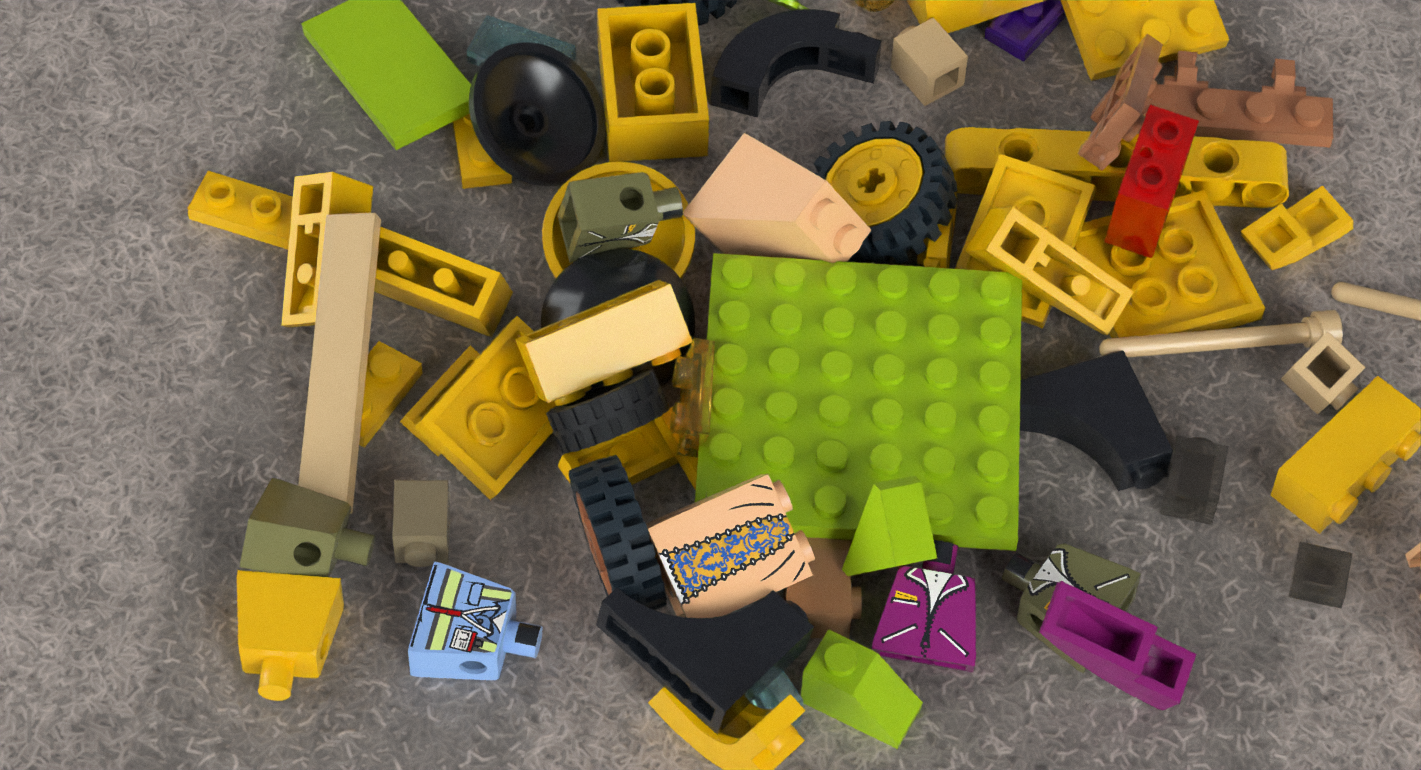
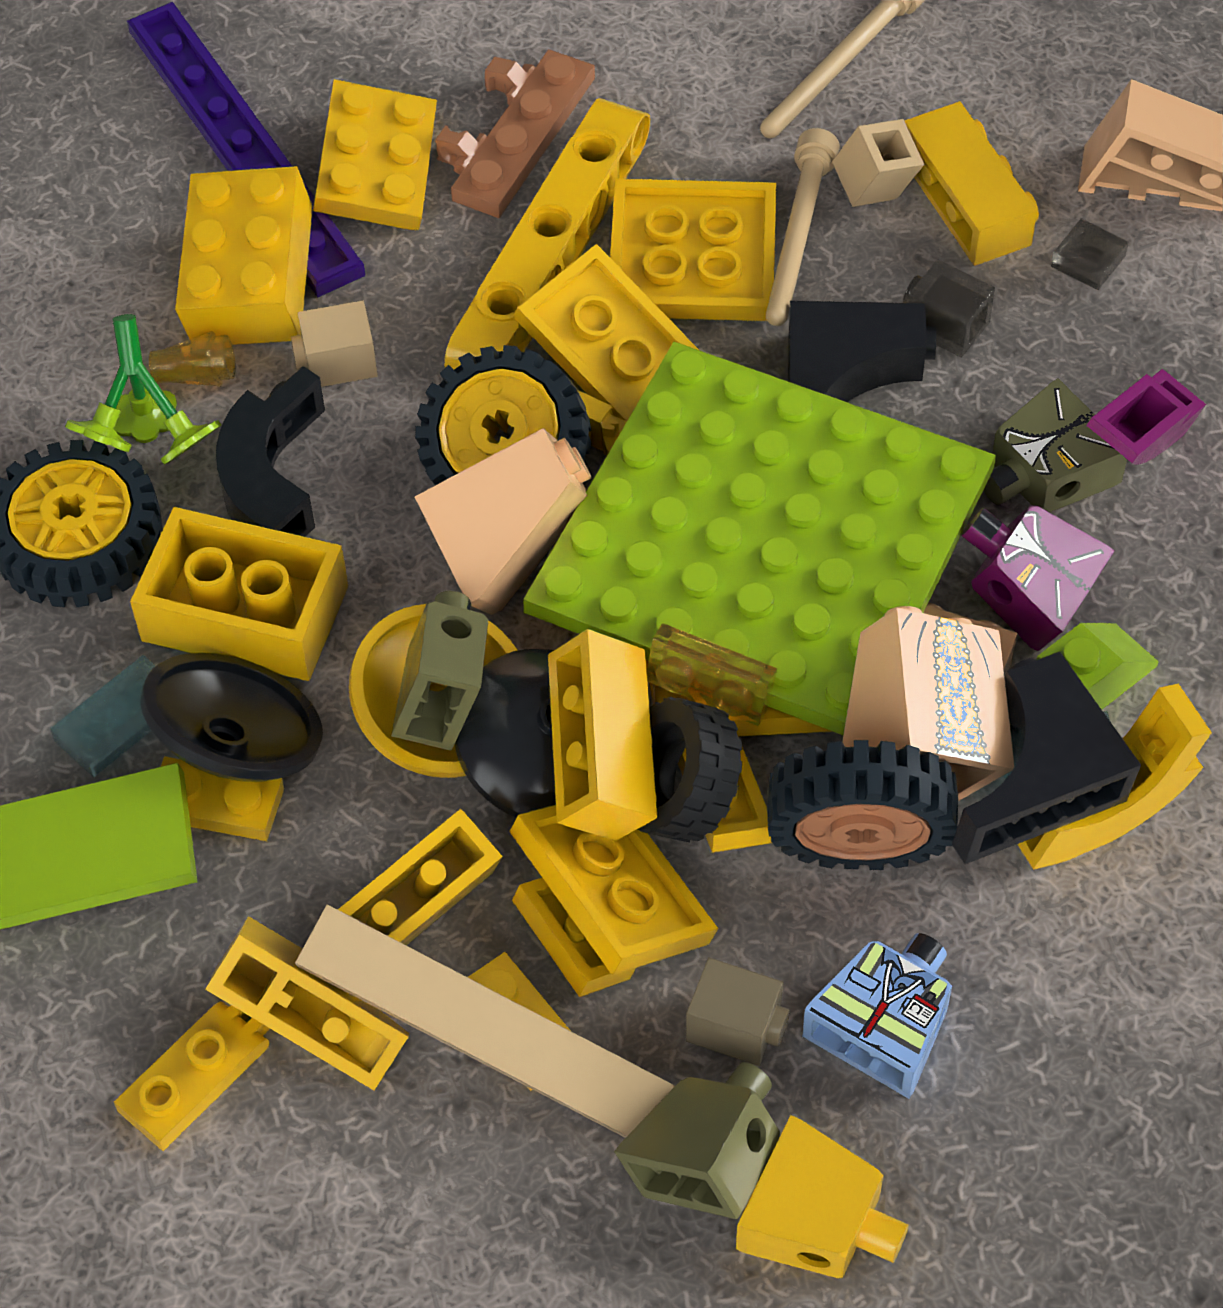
camera: 65 degrees left, 0 degrees up
(892, 528) = (974, 547): lime slope -> none
(1049, 268) = (661, 319): yellow slope -> none
(1123, 106) = (484, 173): nougat hinge -> none
(1151, 181) = (599, 197): red window -> none
(1296, 232) = (685, 131): yellow slope -> none

